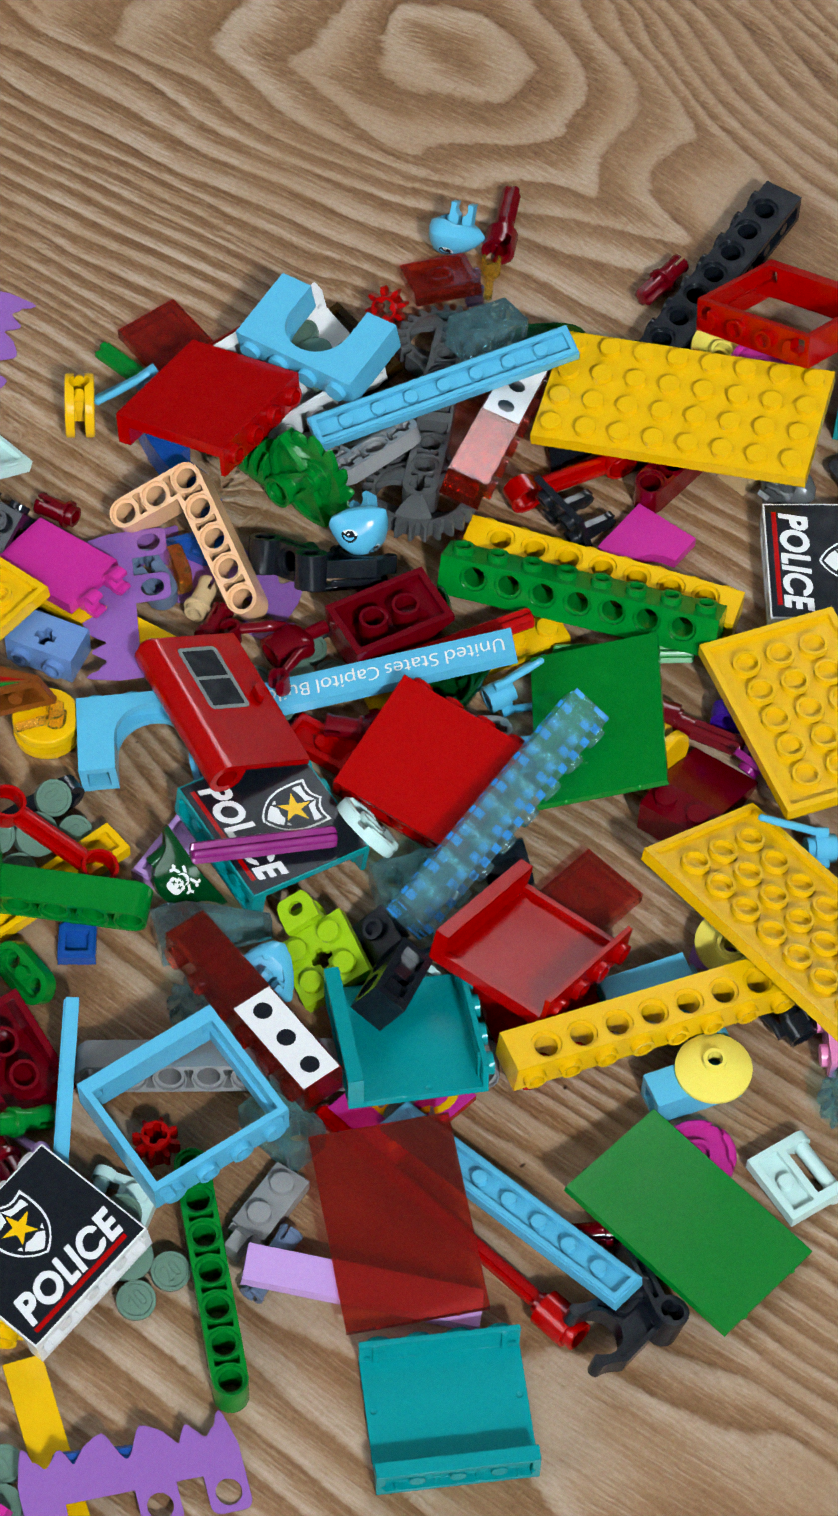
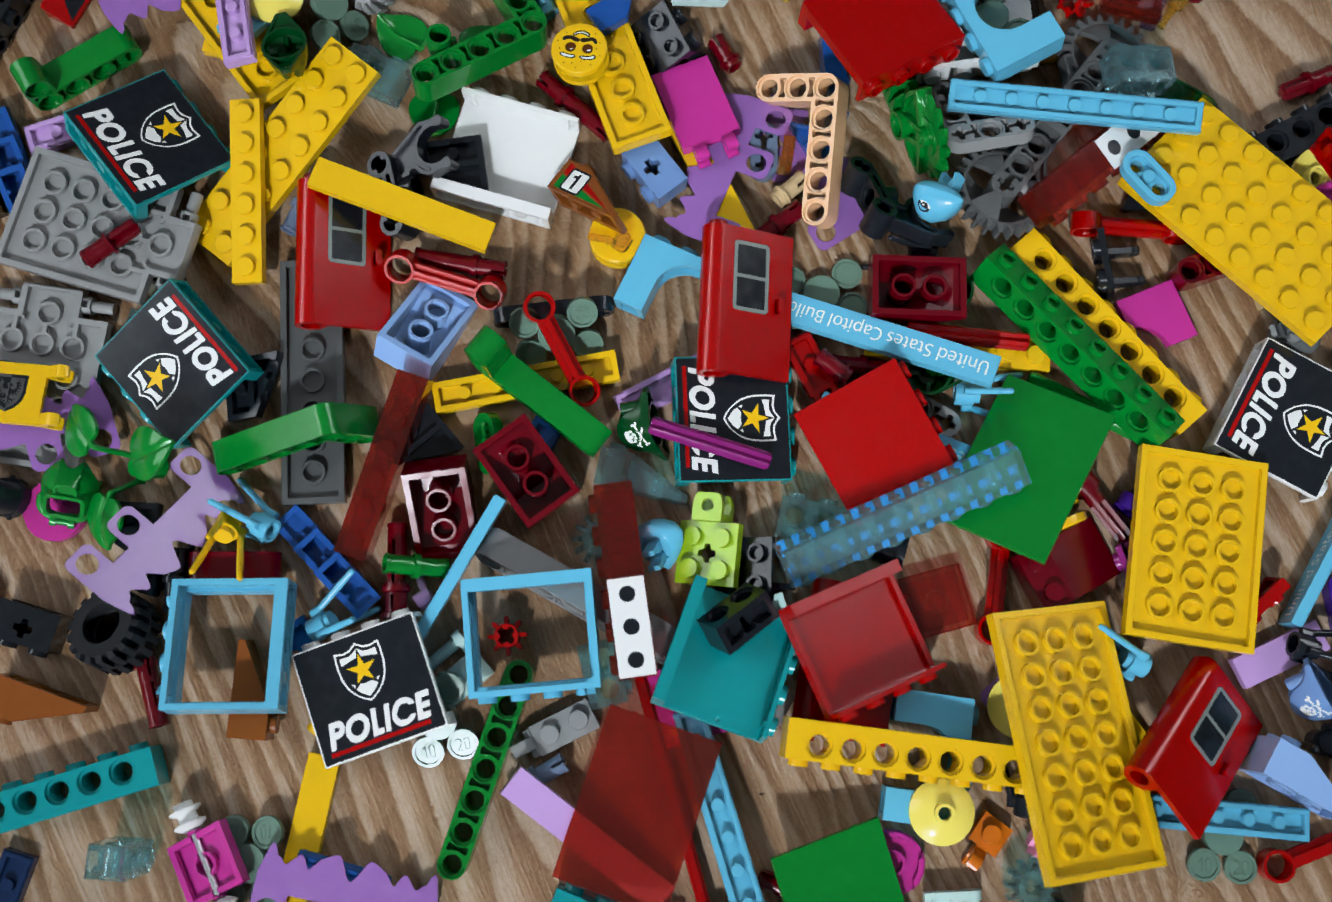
camera: 30 degrees right, 25 degrees up
(86, 964) = (526, 471): none -> dark red slope
(282, 648) = (826, 268): dark red piece -> none
(367, 827) = (796, 464): light aqua tile -> none
(558, 415) = (1149, 176): none -> medium azure plate
(635, 843) = (995, 586): none -> red piece
(779, 1084) = (987, 837): none -> orange plate

